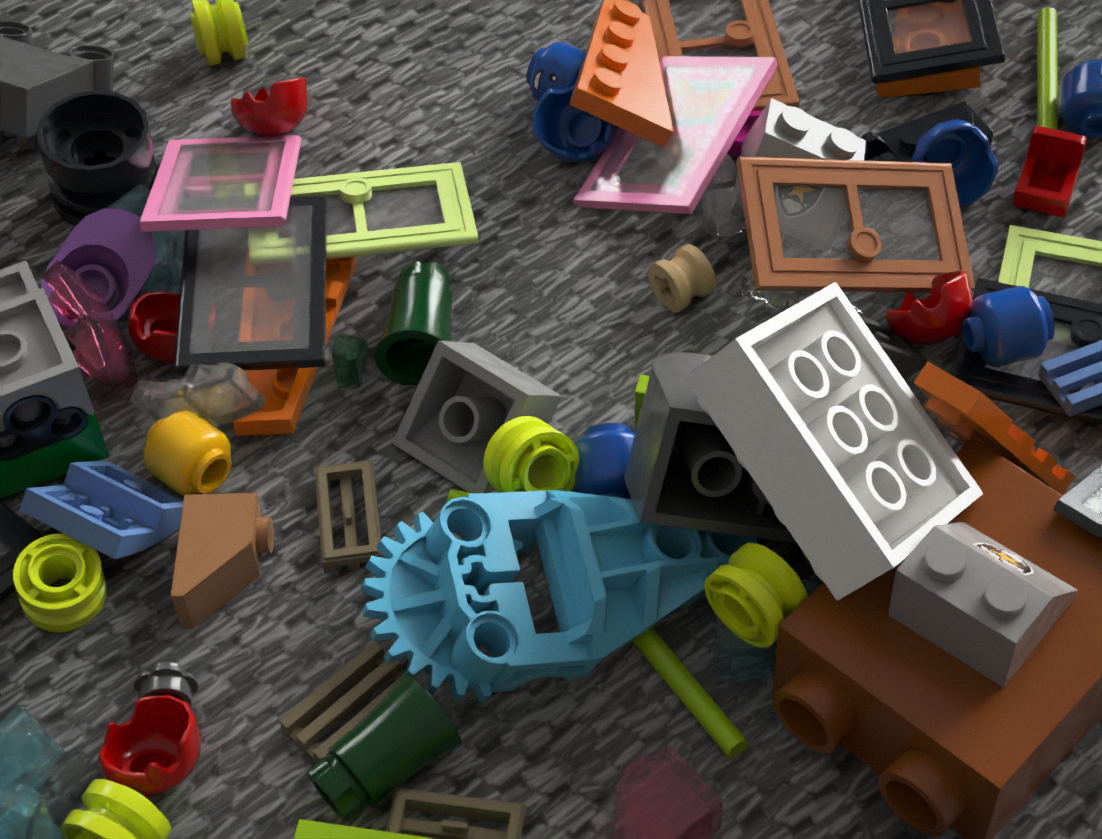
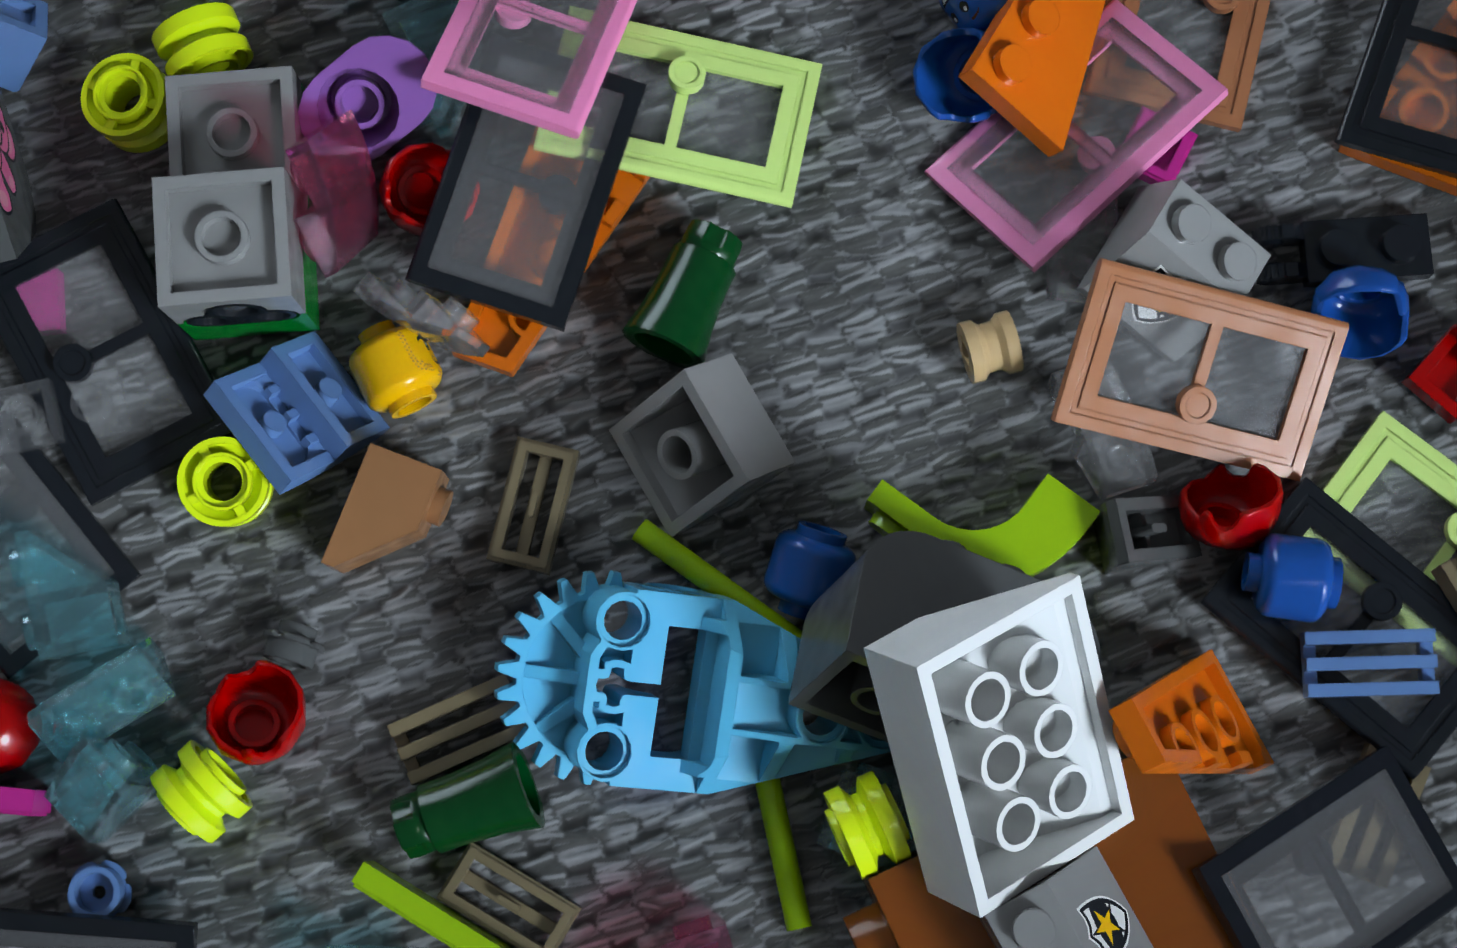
camera: 20 degrees right, 30 degrees up
(350, 360) = (598, 313): clear green tile -> none
(530, 457) = (727, 542): neon yellow wheel -> none

